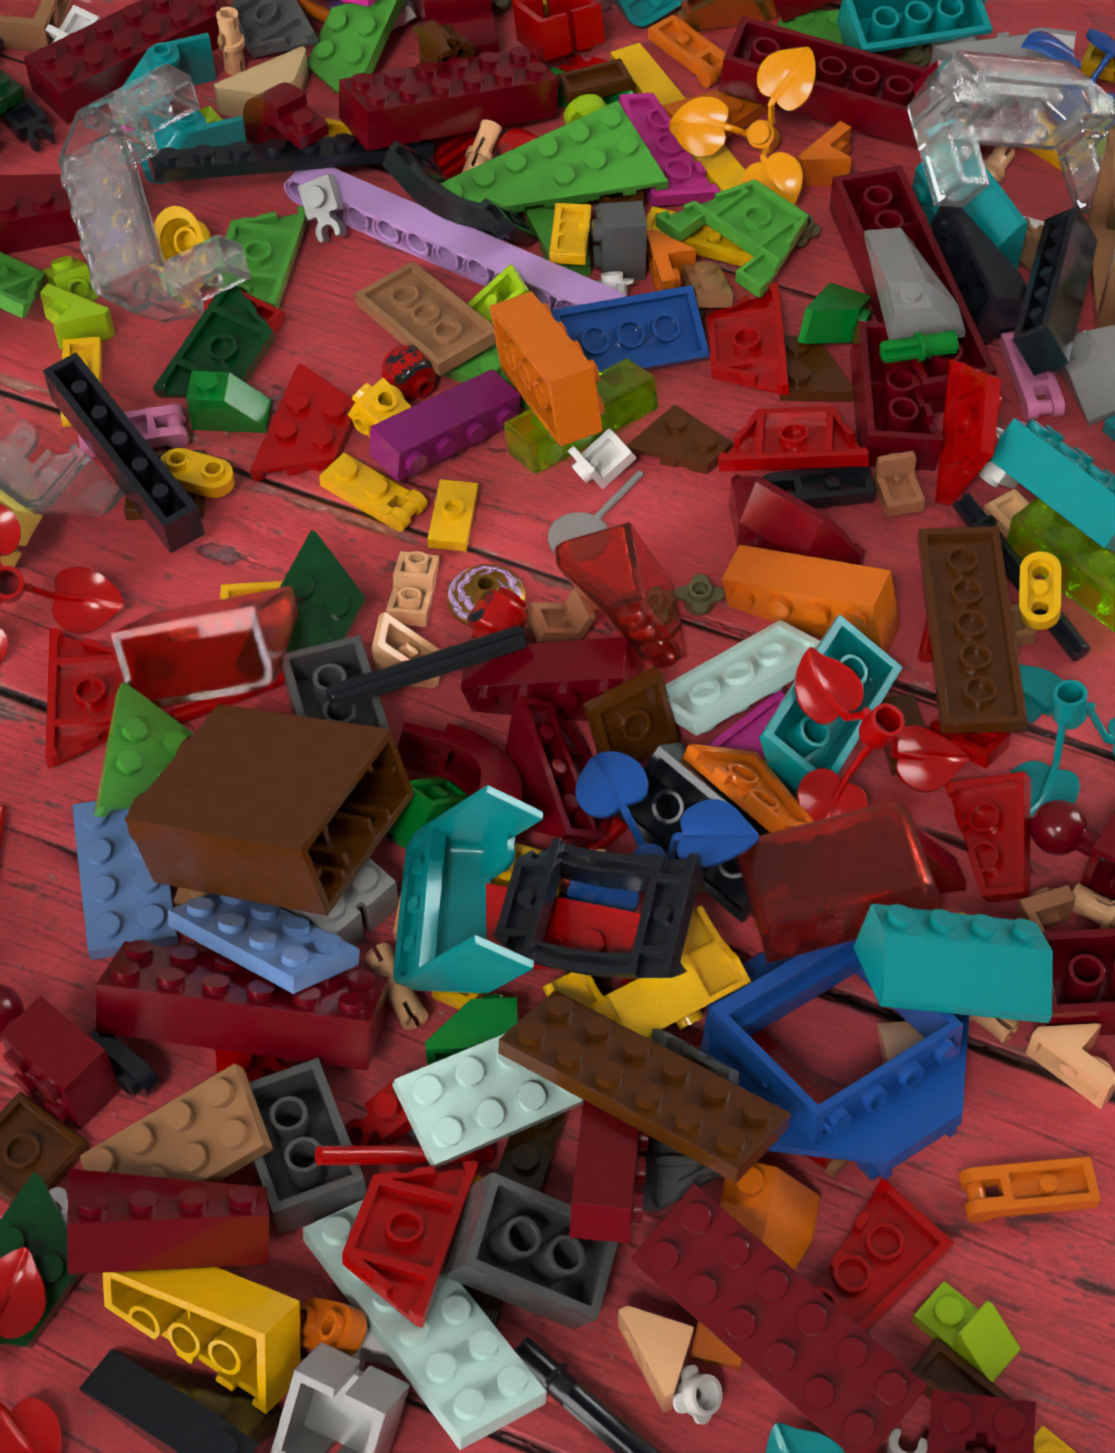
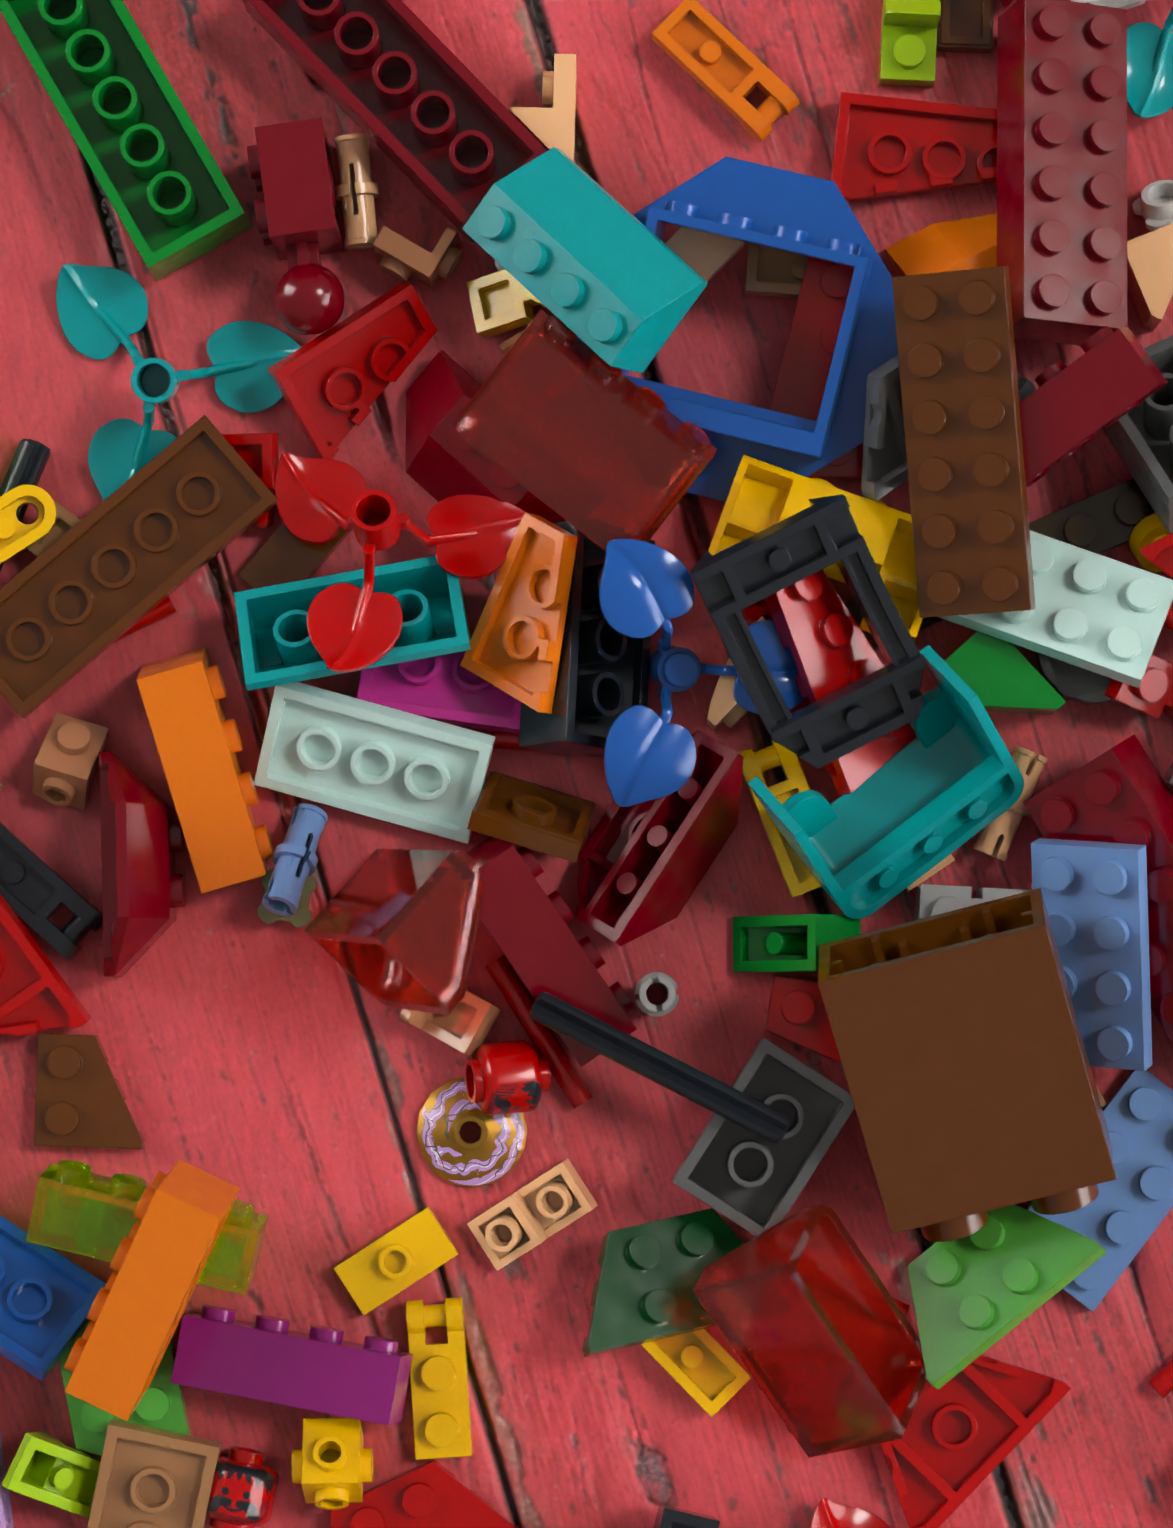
camera: 125 degrees left, 30 degrees up
(398, 643) = (630, 1131): light nougat slope -> none
(460, 758) = (710, 929): dark red arch -> none
(469, 706) = (663, 980): none -> light grey pin
(580, 523) = (302, 1101): light grey piece -> none
(602, 459) = (197, 1147): white bracket -> none
(717, 602) = (295, 859): none -> medium blue pin
(879, 545) = (68, 761): none -> nougat bracket

